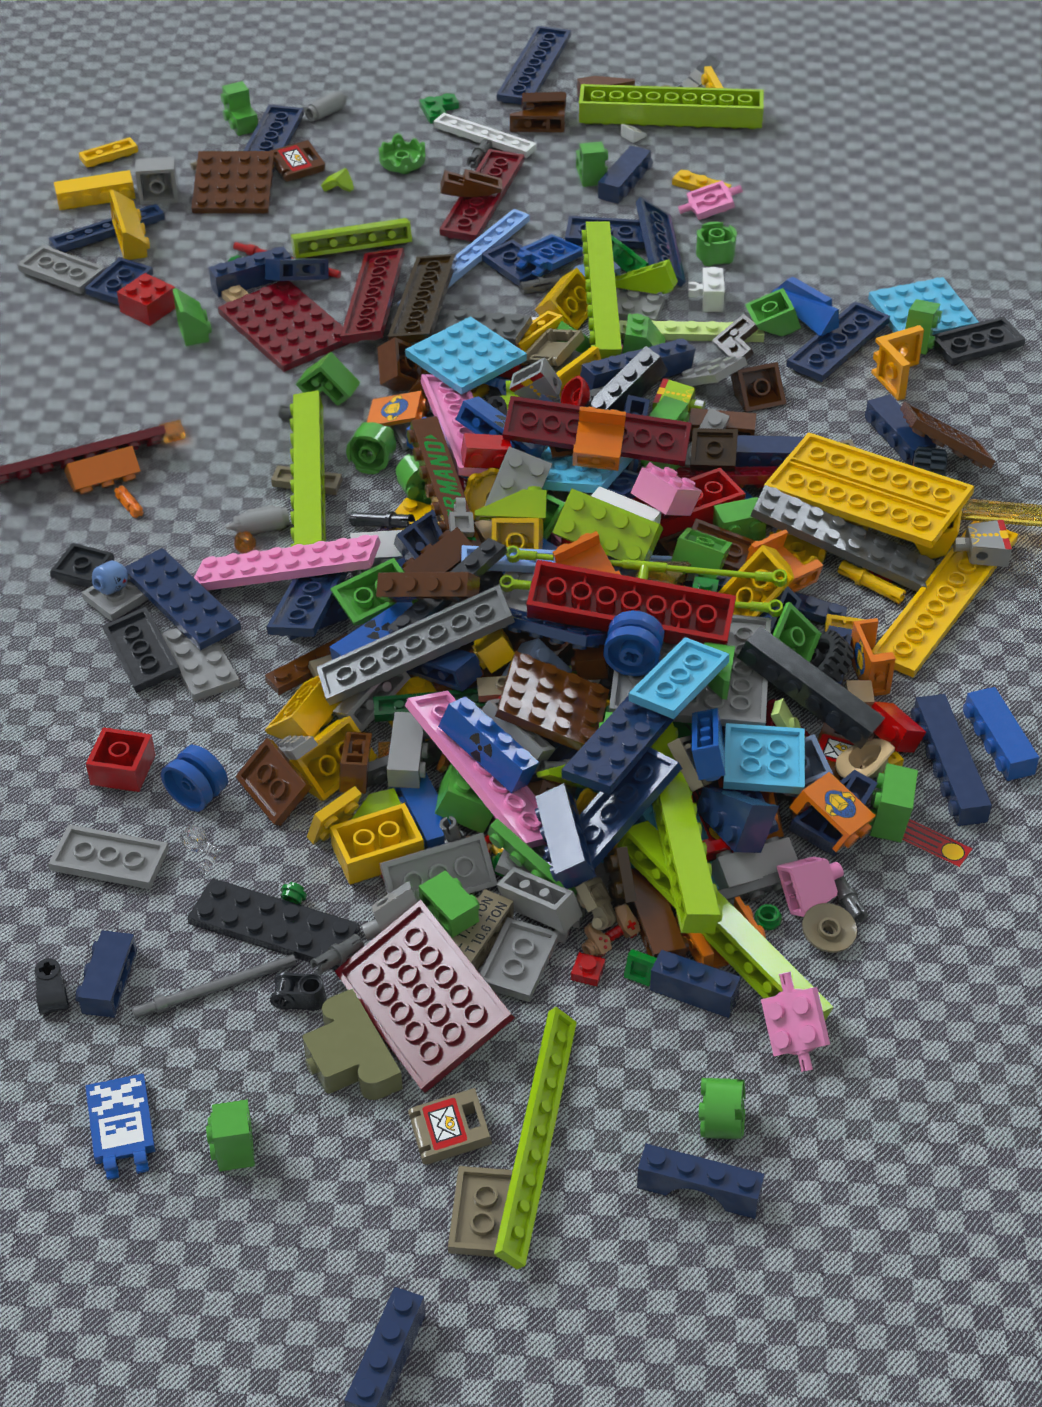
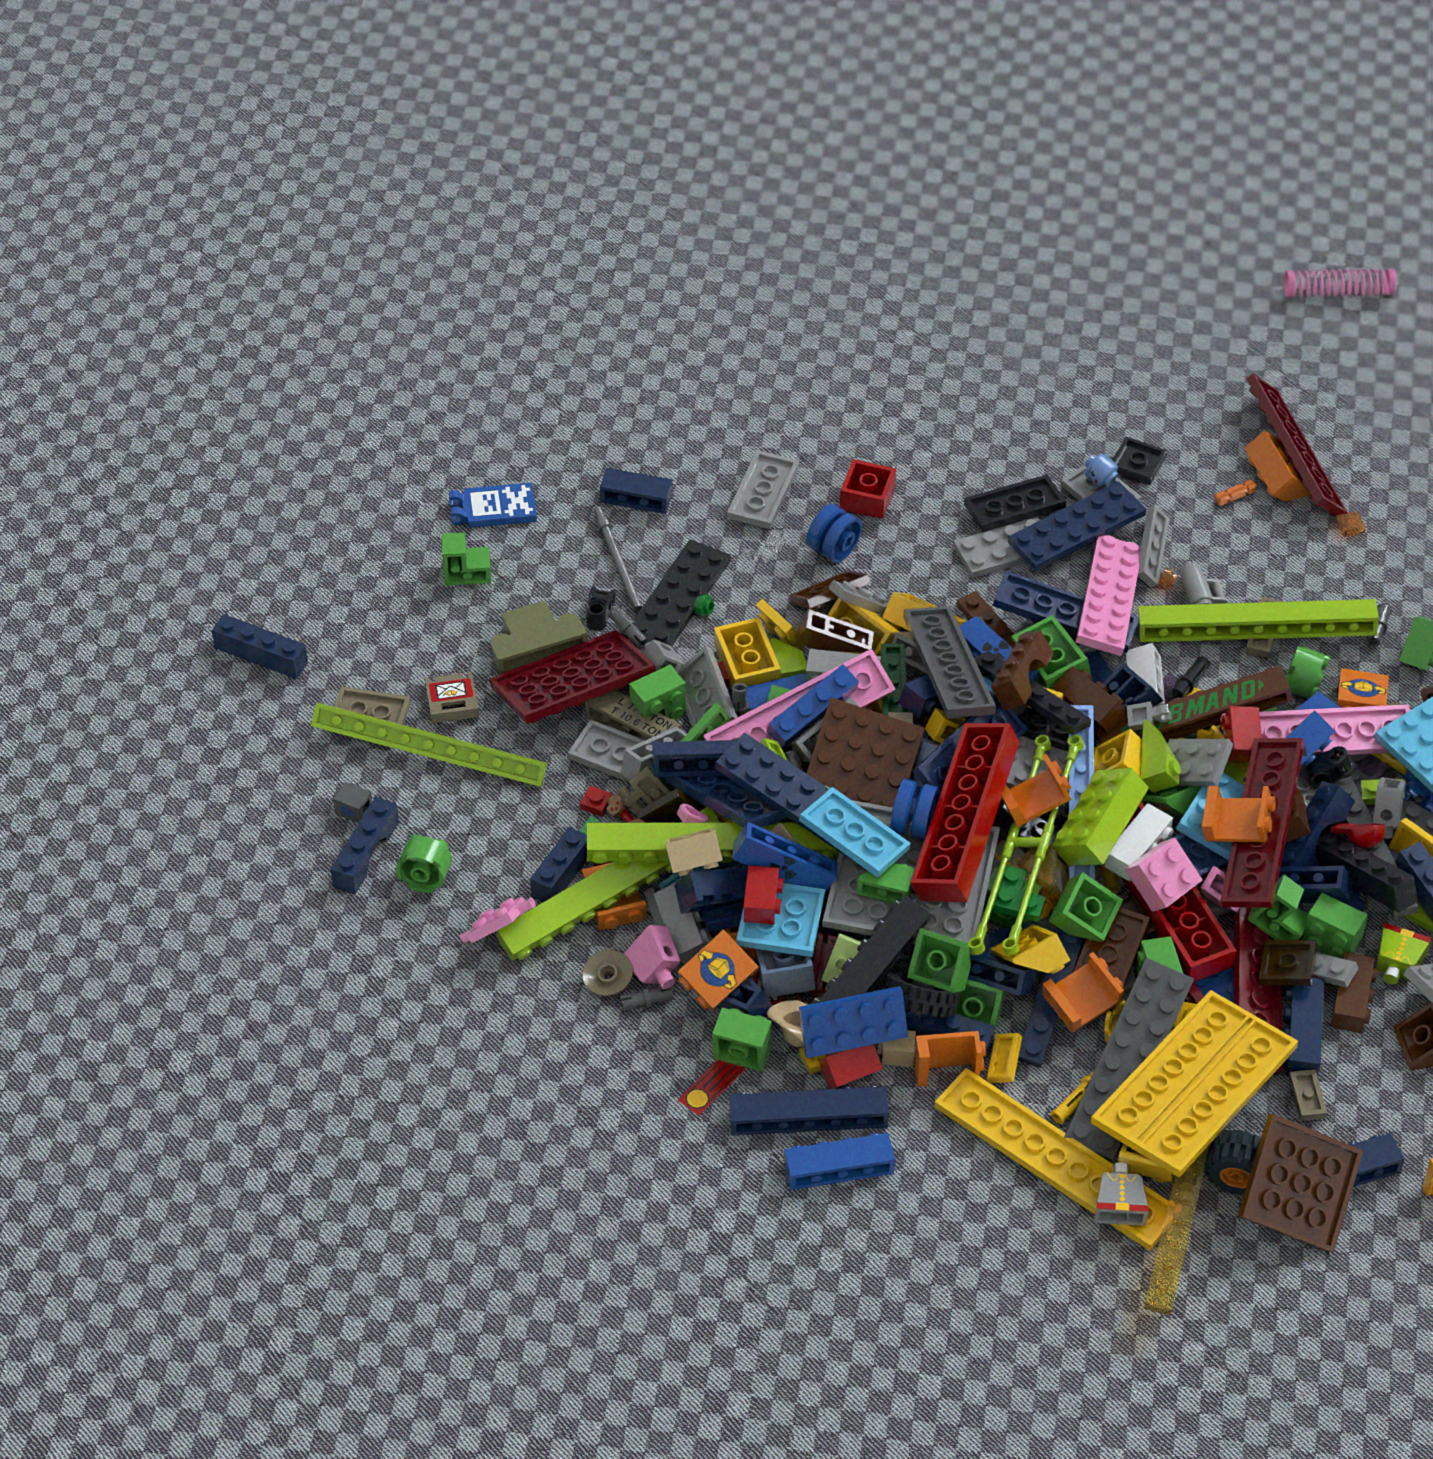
camera: 95 degrees right, 5 degrees up
(50, 986) = (626, 458): black piece -> none
(194, 551) = (1153, 546): none -> light grey plate
(634, 1206) = (351, 801): none -> dark grey brick
(649, 835) = (690, 815): none -> bright pink tile
(717, 811) = (693, 850): none -> tan brick
(754, 761) = (761, 895): none -> red brick
(768, 917) = (630, 928): green plate -> none
(879, 696) = (853, 1022): none -> blue plate

